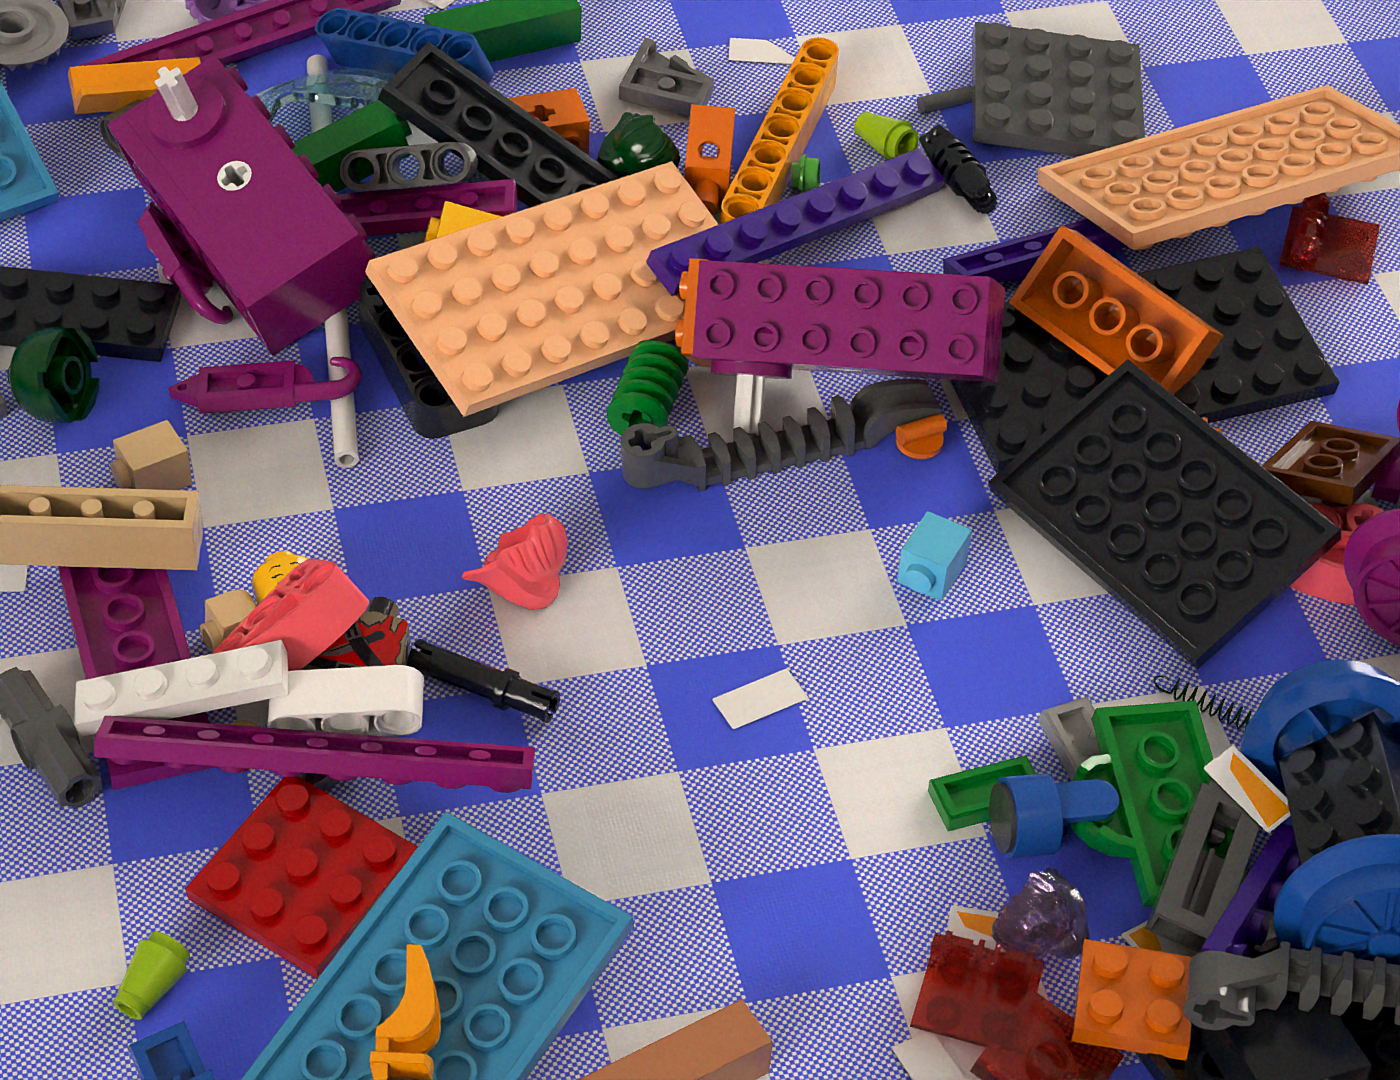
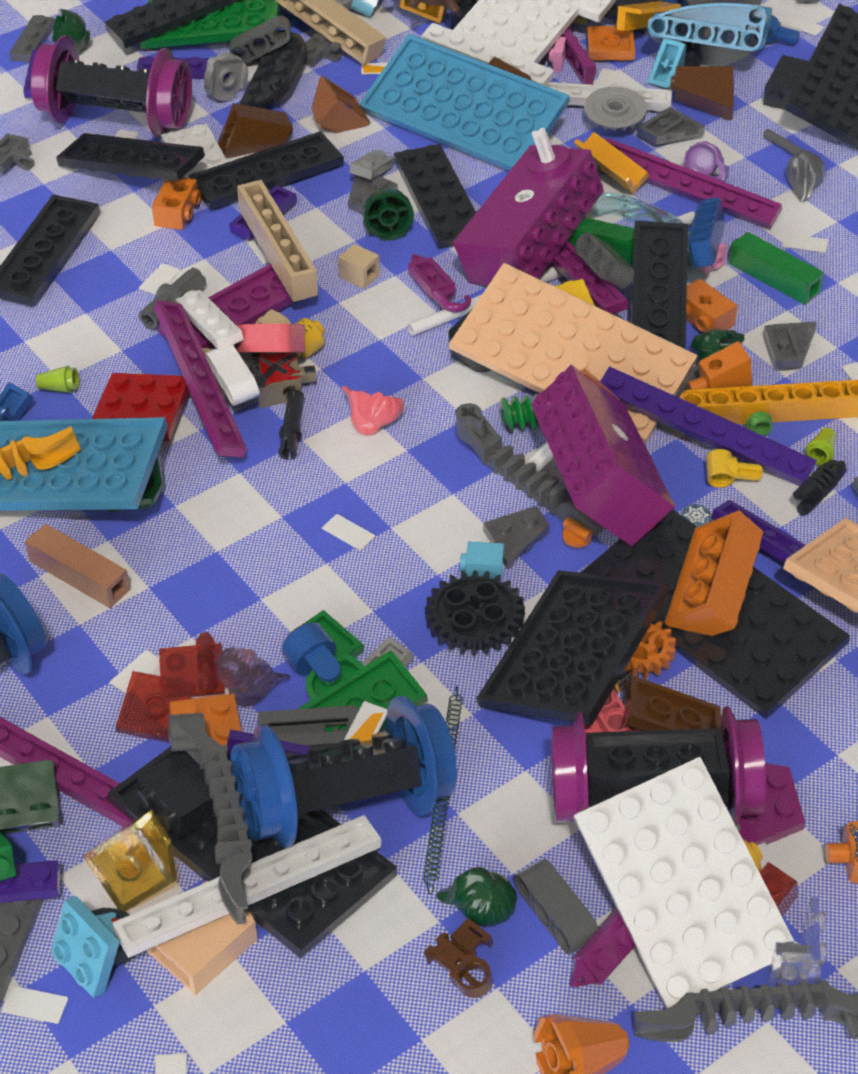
camera: 70 degrees right, 0 degrees up
(876, 502) = (517, 532): none -> flat silver wing
(881, 238) = (724, 469): none -> yellow axle
(1065, 606) = (475, 612): none -> black gear

